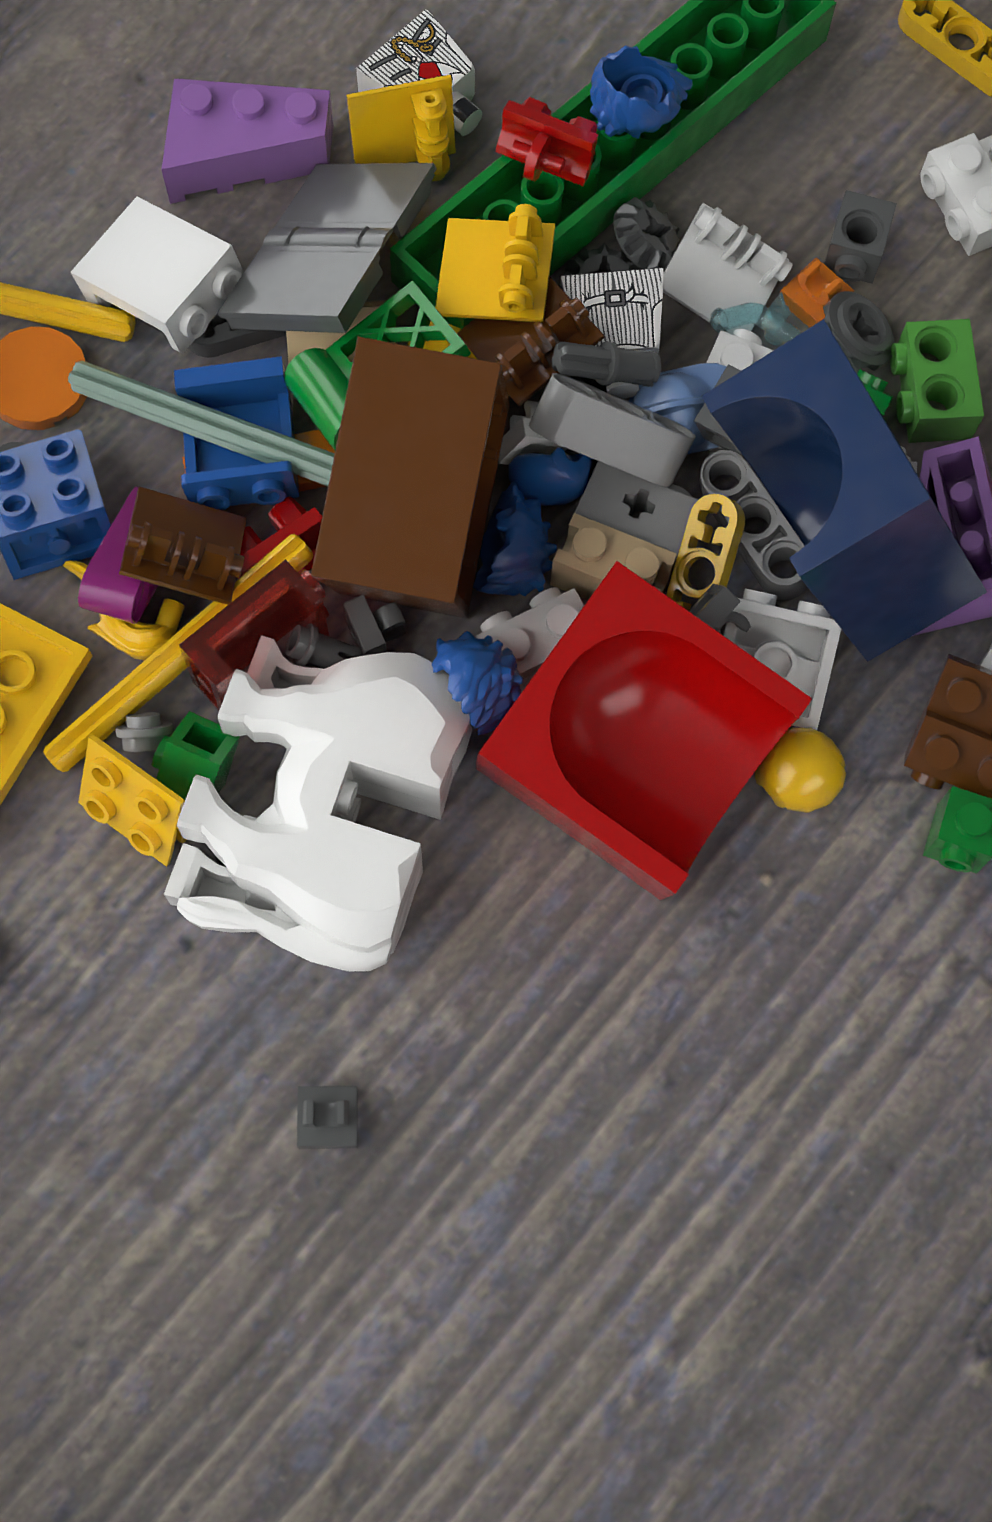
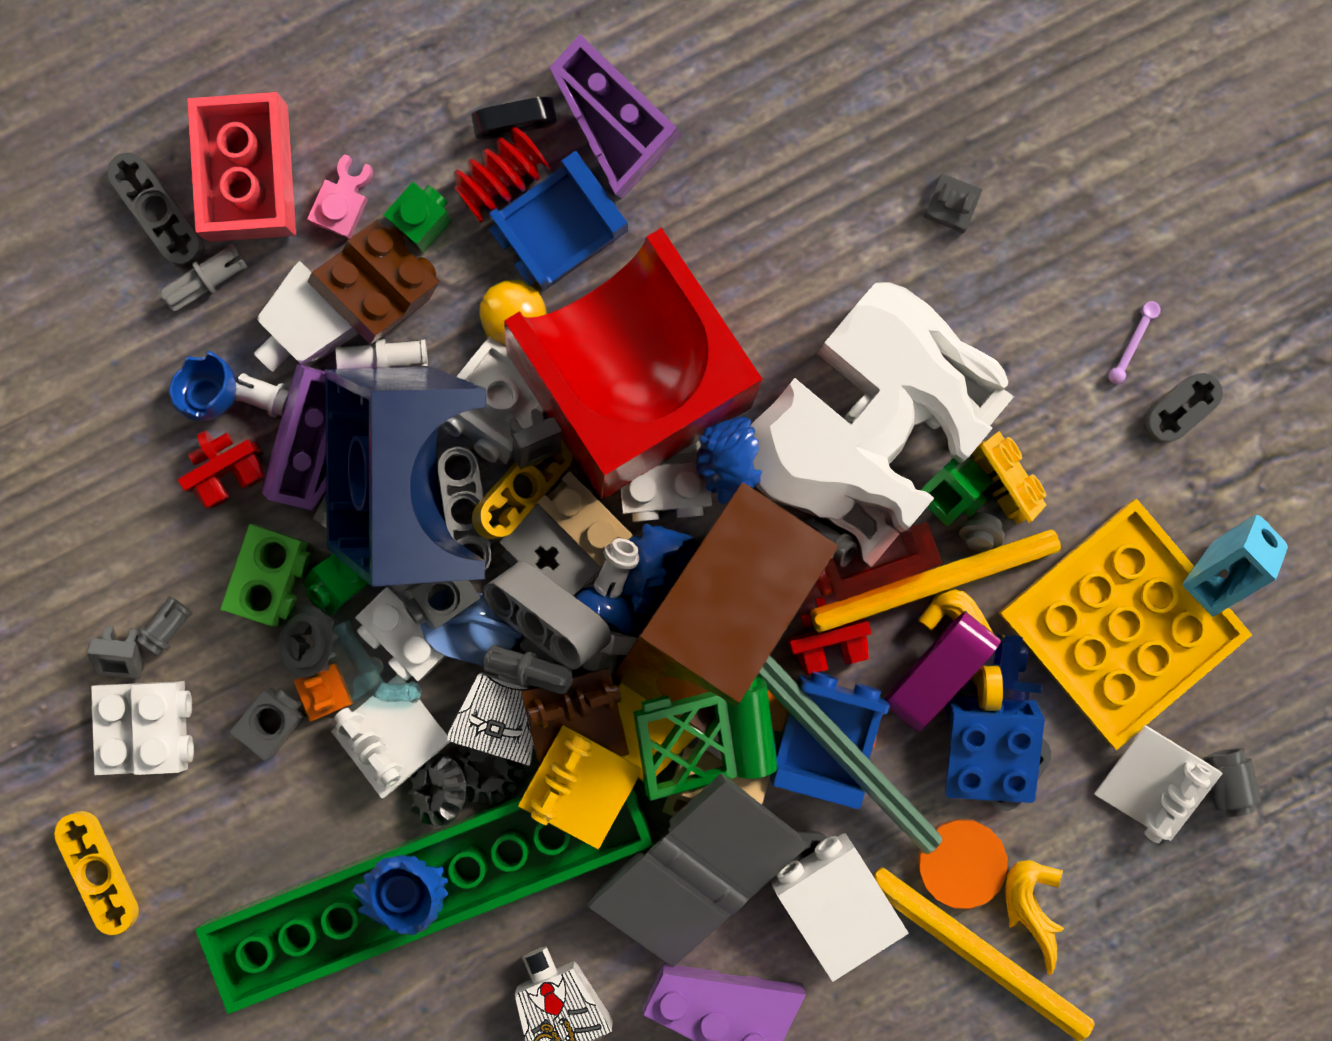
camera: 155 degrees left, 15 degrees up
(29, 1083) = (1149, 312): none -> lavender hinge
(55, 592) = (1012, 659): none -> clear blue bracket
(71, 553) = (989, 688): none -> yellow tile
(184, 546) = (906, 653): reddish brown hinge -> none
(404, 124) = (578, 961): yellow hinge -> none
(547, 142) = (496, 879): red hips -> none
(556, 520) = (620, 558): none -> white pin
(795, 1046) = (615, 117): none -> medium lavender wedge
(799, 892) = (558, 223): none -> blue panel
(894, 916) = (499, 172): none -> red piece
(909, 997) = (524, 114): none -> black beam
(926, 661) = (383, 355): none -> white pin

